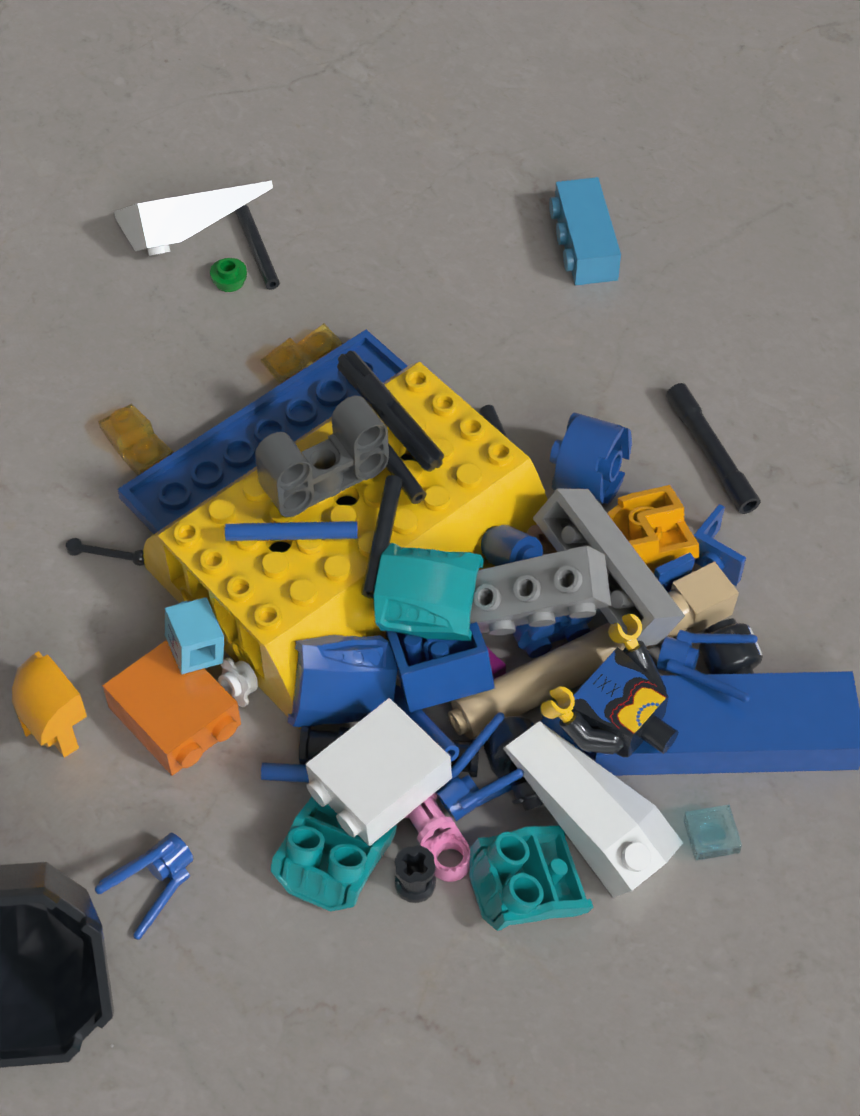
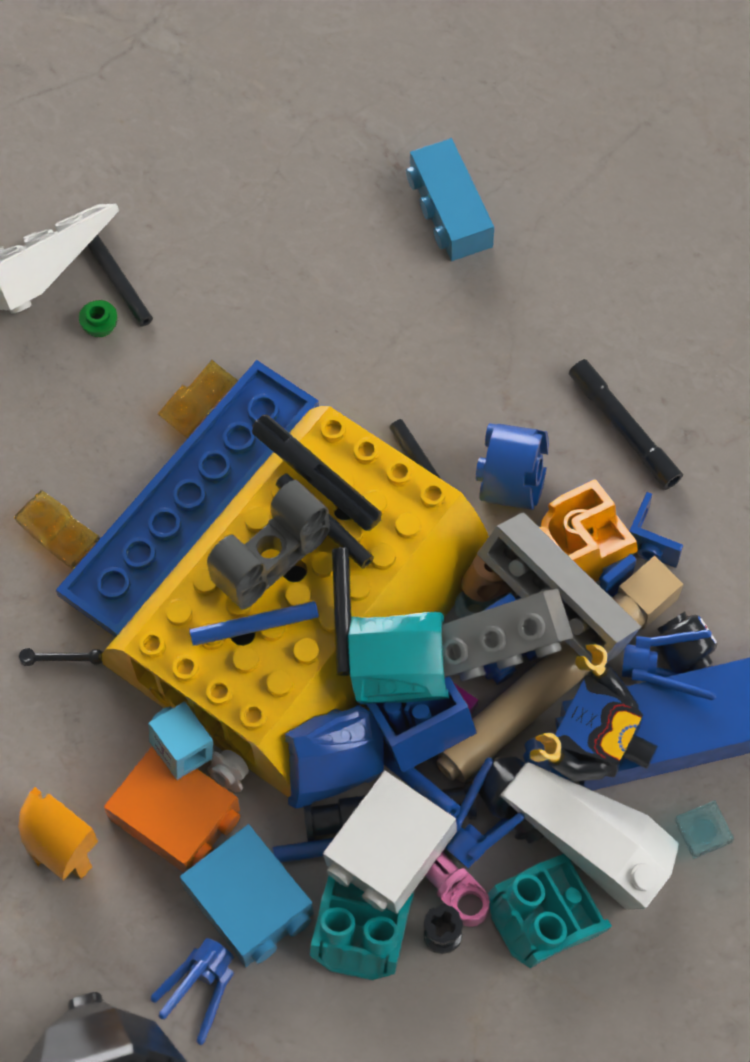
camera: 10 degrees left, 10 degrees up
(223, 802) = (248, 896): none -> dark azure brick
(508, 545) = (462, 588): blue brick -> none

